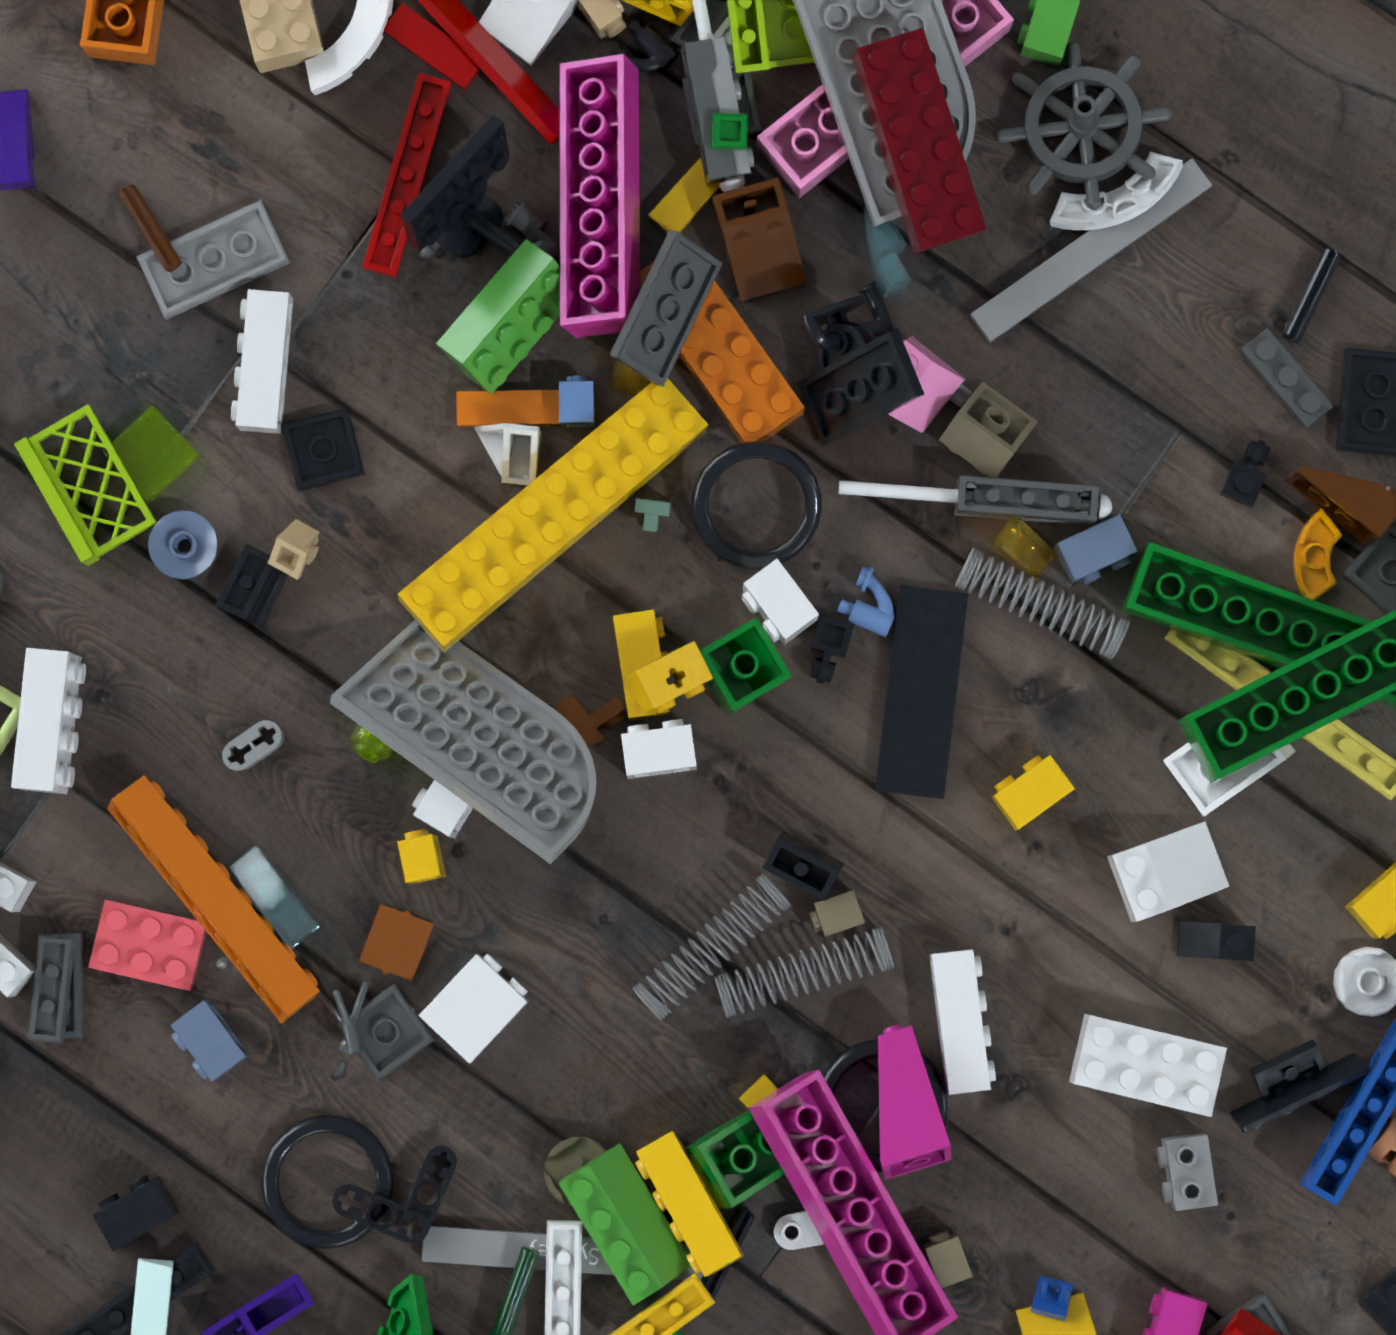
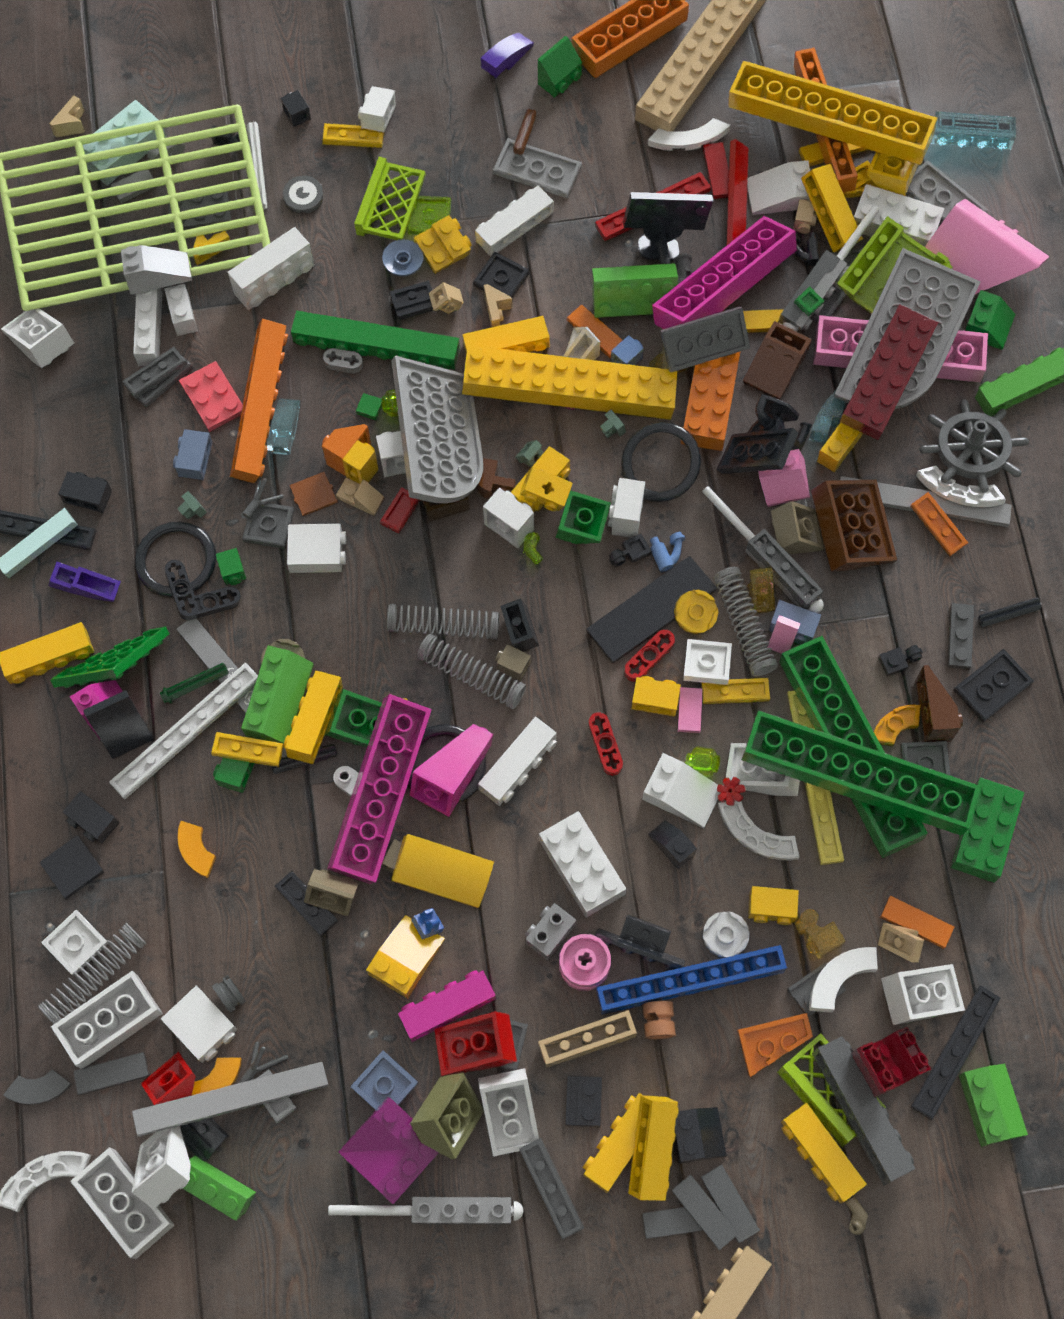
camera: 45 degrees right, 15 degrees down
(105, 99) = (559, 67): none -> green slope
(212, 478) = (443, 244): none -> yellow plate
(264, 684) = (374, 339): none -> green brick
(278, 1101) = (191, 506): none -> sand green tile
(345, 771) = (369, 406): none -> green tile
(352, 491) = (496, 303): none -> tan slope
(379, 857) = (340, 442): none -> orange slope
(404, 1128) = (231, 567): none -> green brick
(420, 527) = (518, 336): none -> yellow brick
(454, 891) = (360, 496): none -> tan slope
(517, 865) = (399, 511): none -> red tile
(591, 642) = (528, 452): none -> sand green tile
(712, 756) = (530, 543): none -> clear neon green arm
(933, 281) = (838, 446): none -> yellow brick
(965, 723) = (664, 648): none -> red beam
(975, 646) = (696, 611): none -> yellow tile
(1010, 1228) = (442, 870): none -> yellow slope
(1046, 363) = (853, 524): none -> reddish brown slope
(1048, 694) = (707, 662): none -> white plate
(1058, 905) = (594, 730): none -> red beam
(1082, 768) = (690, 710): none -> bright pink tile
(1104, 581) = (783, 634): none -> bright pink tile
(1107, 694) = (736, 691): none -> yellow tile
(1136, 264) = (939, 524): none -> orange tile
(1157, 815) = (703, 760): none -> clear neon green head
(1221, 819) = (730, 791): none -> red plant
(1280, 1175) = (584, 948): none -> bright pink wheel
(1293, 842) = (755, 839): none -> white tile
(1345, 1248) = (587, 1039): none -> tan brick

